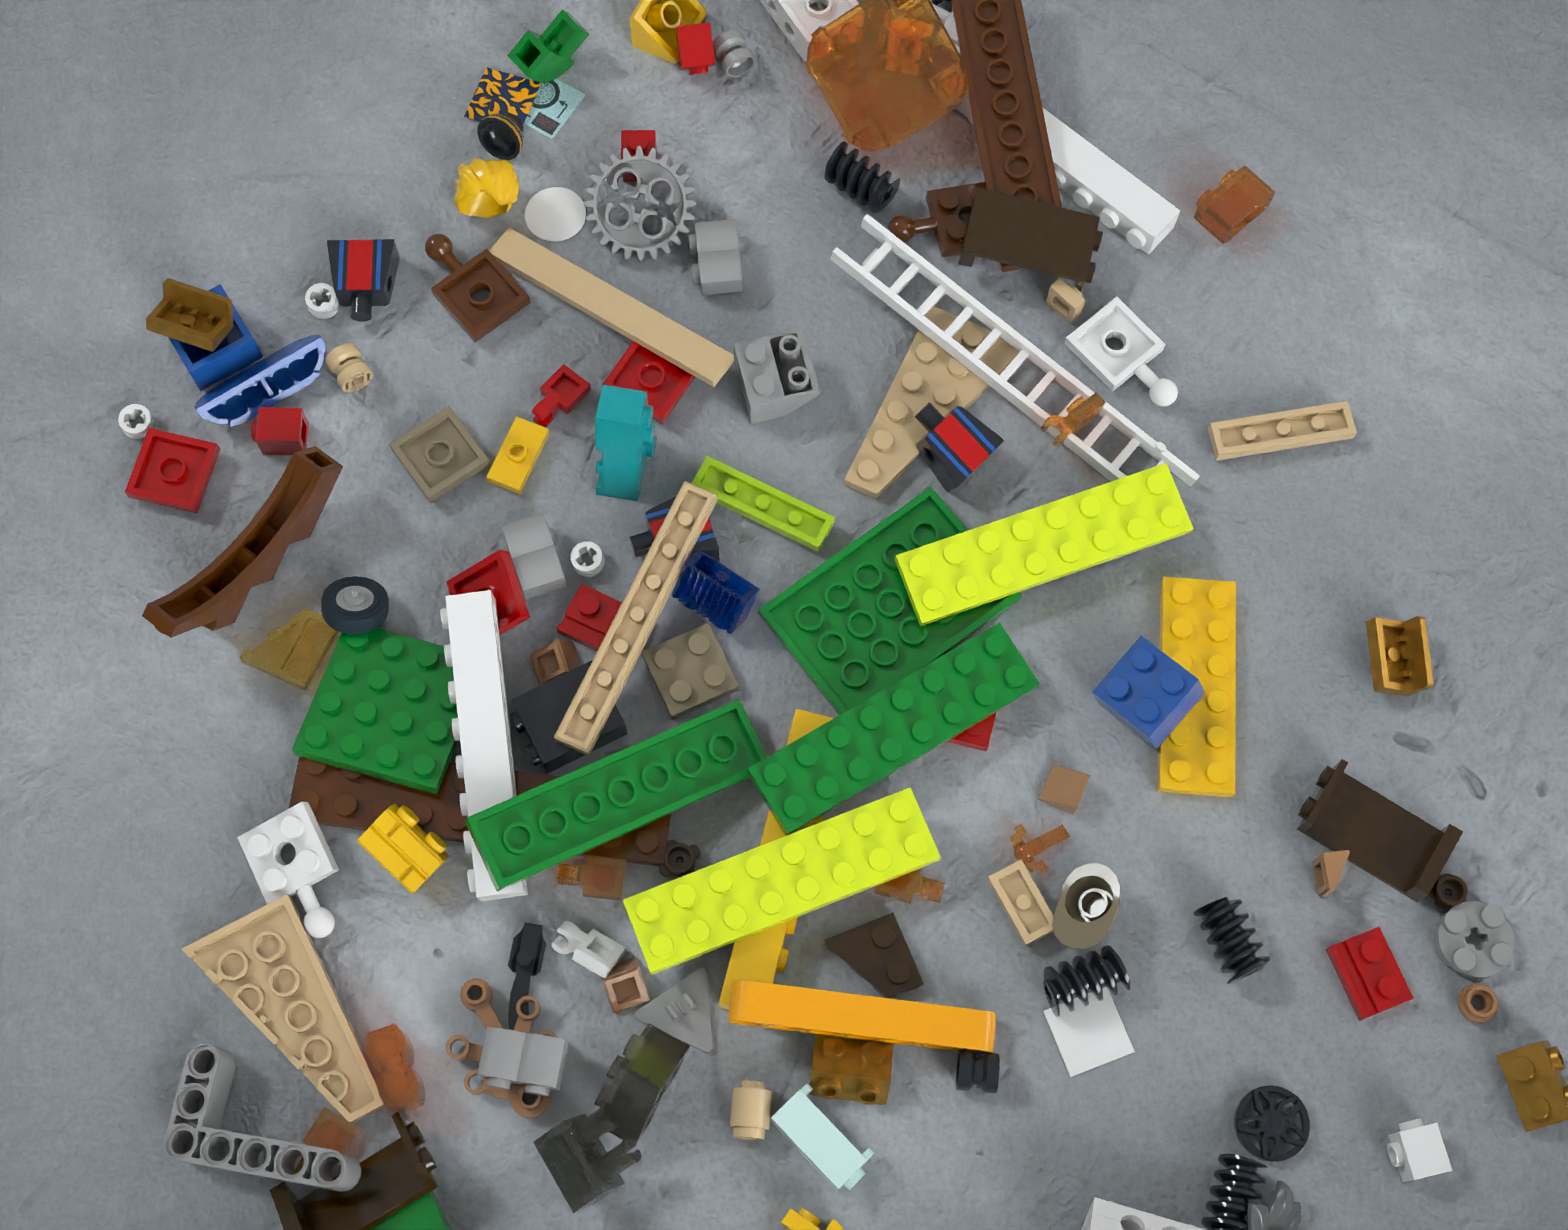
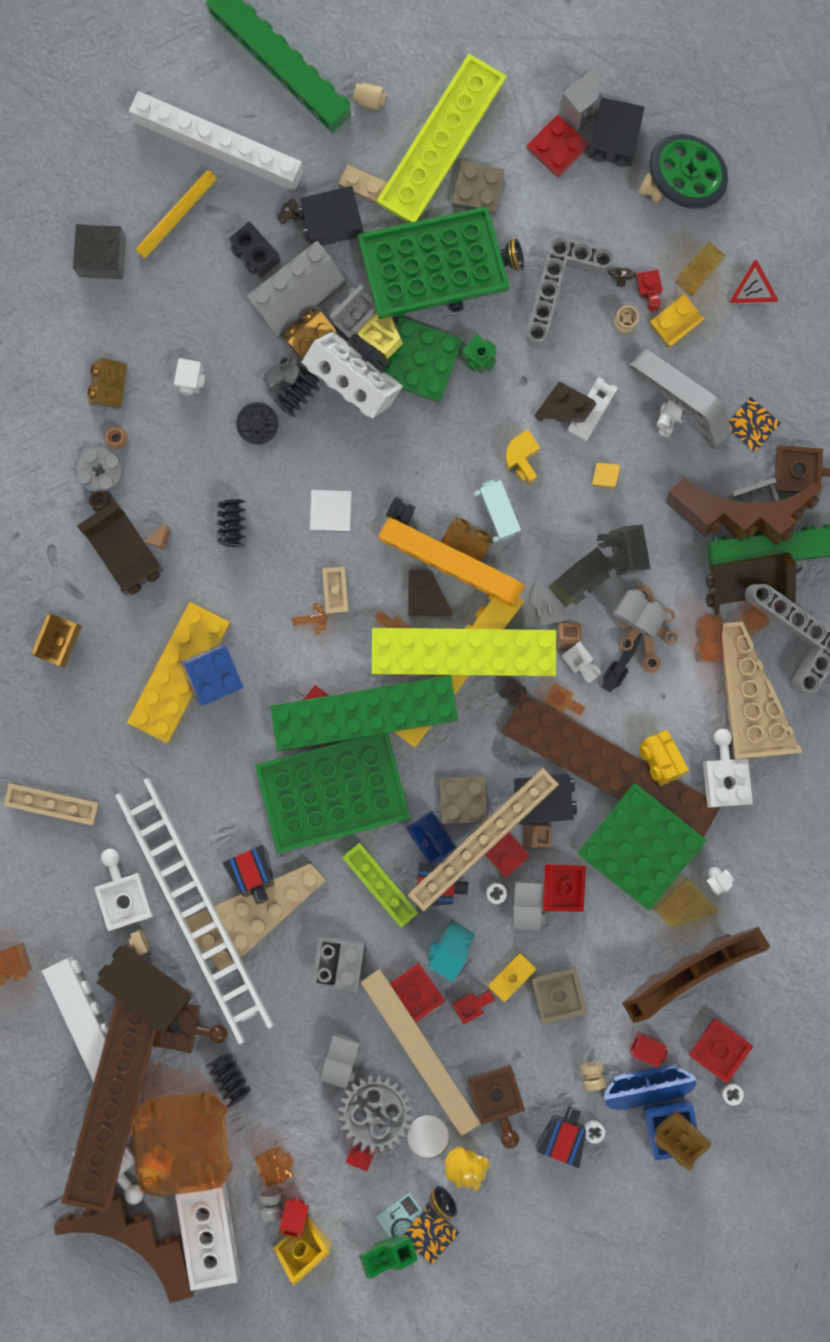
camera: 160 degrees left, 15 degrees up
(251, 698) = (719, 880): none -> white plate
(355, 605) = (641, 917): black wheel -> none
(481, 720) = (598, 797): white brick -> none
(615, 795) = (534, 736): green plate -> none
(749, 98) = (274, 1166): none -> clear orange brick
(750, 1111) = (529, 540): tan brick -> none
(1043, 544) = (228, 788): neon yellow plate -> none
(1064, 788) = (282, 644): medium nougat slope -> none
(1080, 414) = (169, 860): clear orange plate -> none
(1084, 978) = (322, 534): black piece -> none
(1087, 906) = (303, 571): dark tan piece -> none
(1369, 973) = (165, 477): red plate -> none

